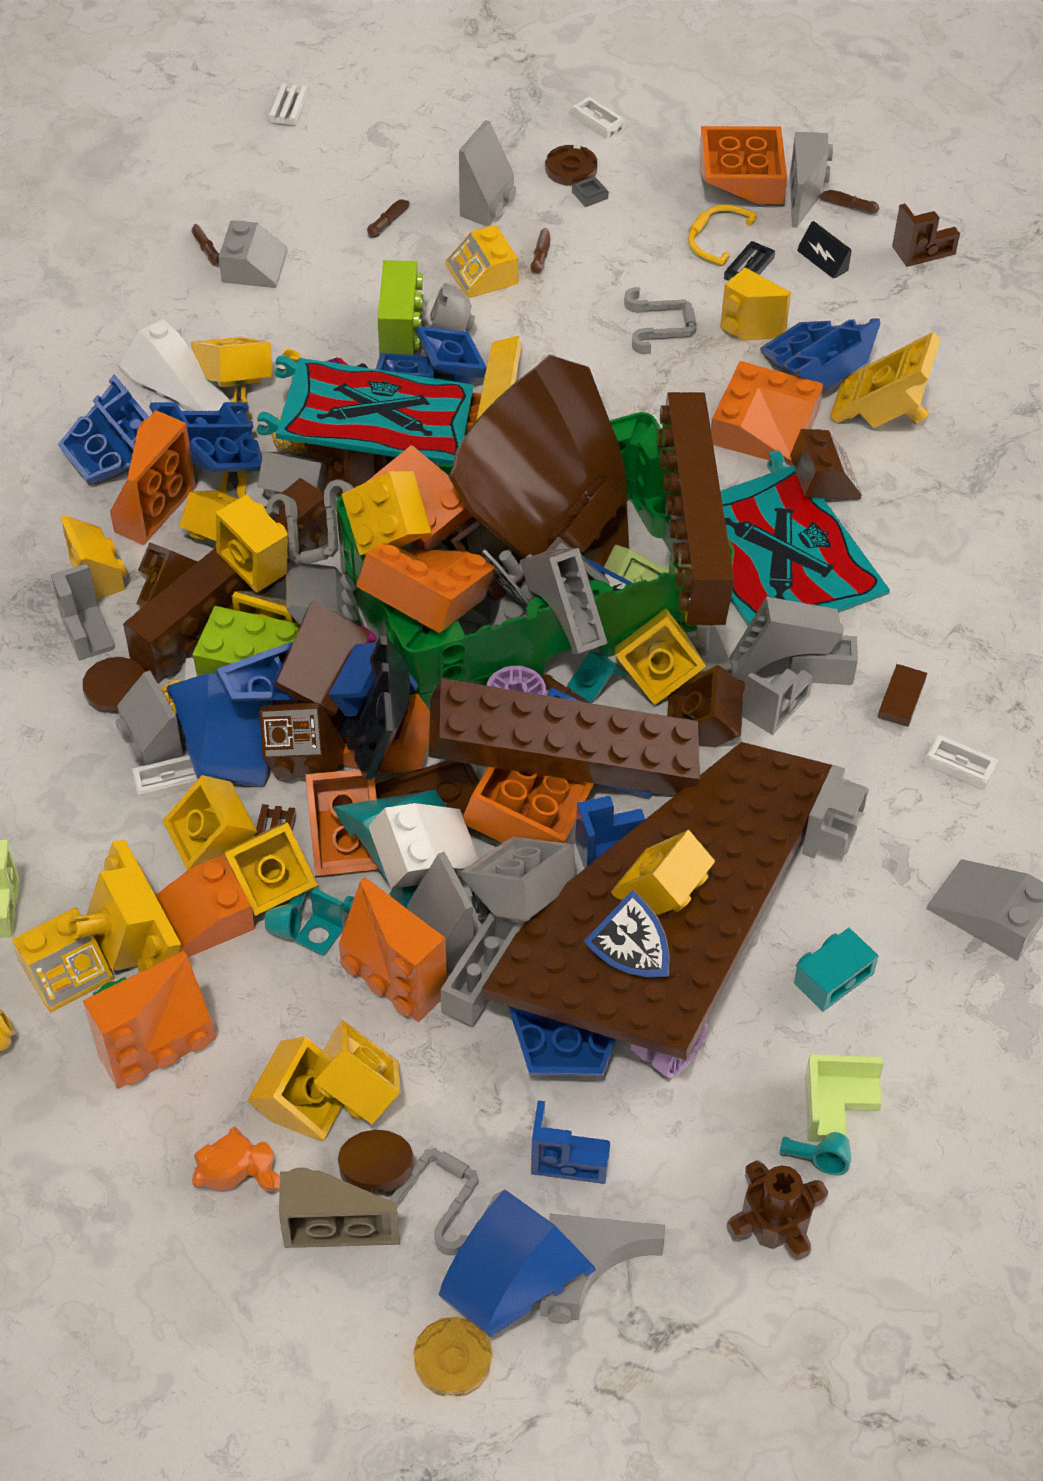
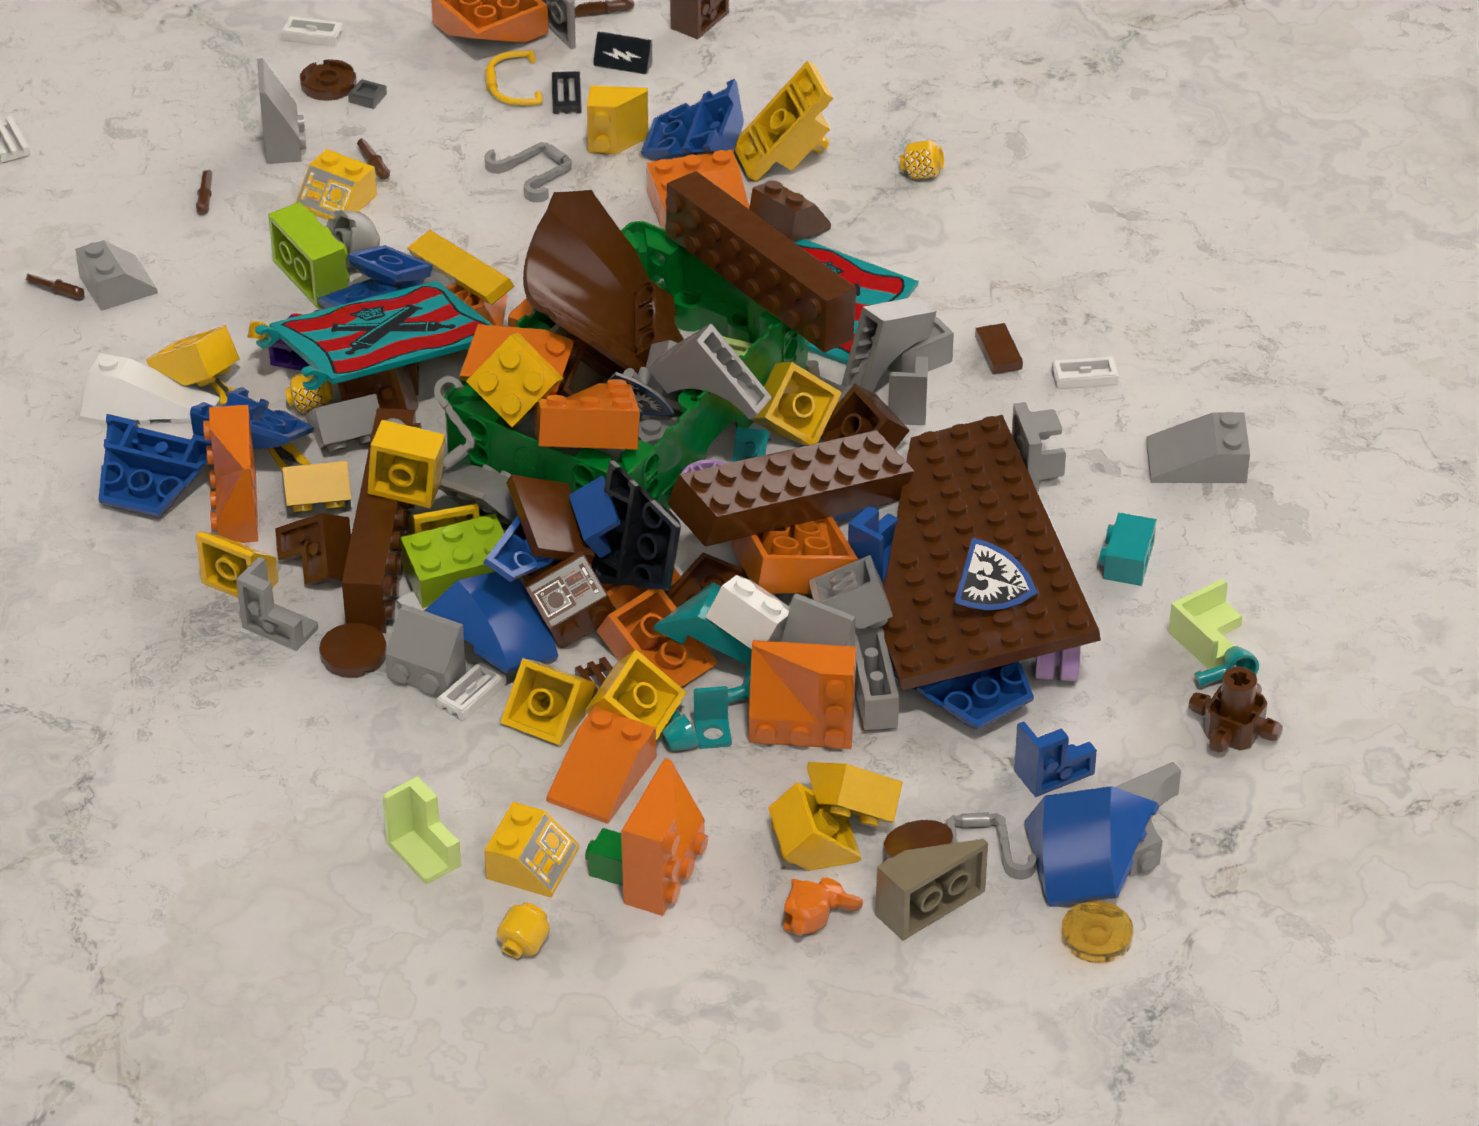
camera: 35 degrees left, 10 degrees down
(126, 915) = (566, 784): yellow brick -> none
(667, 873) = (952, 531): yellow slope -> none
(994, 474) = (922, 159): none -> yellow head

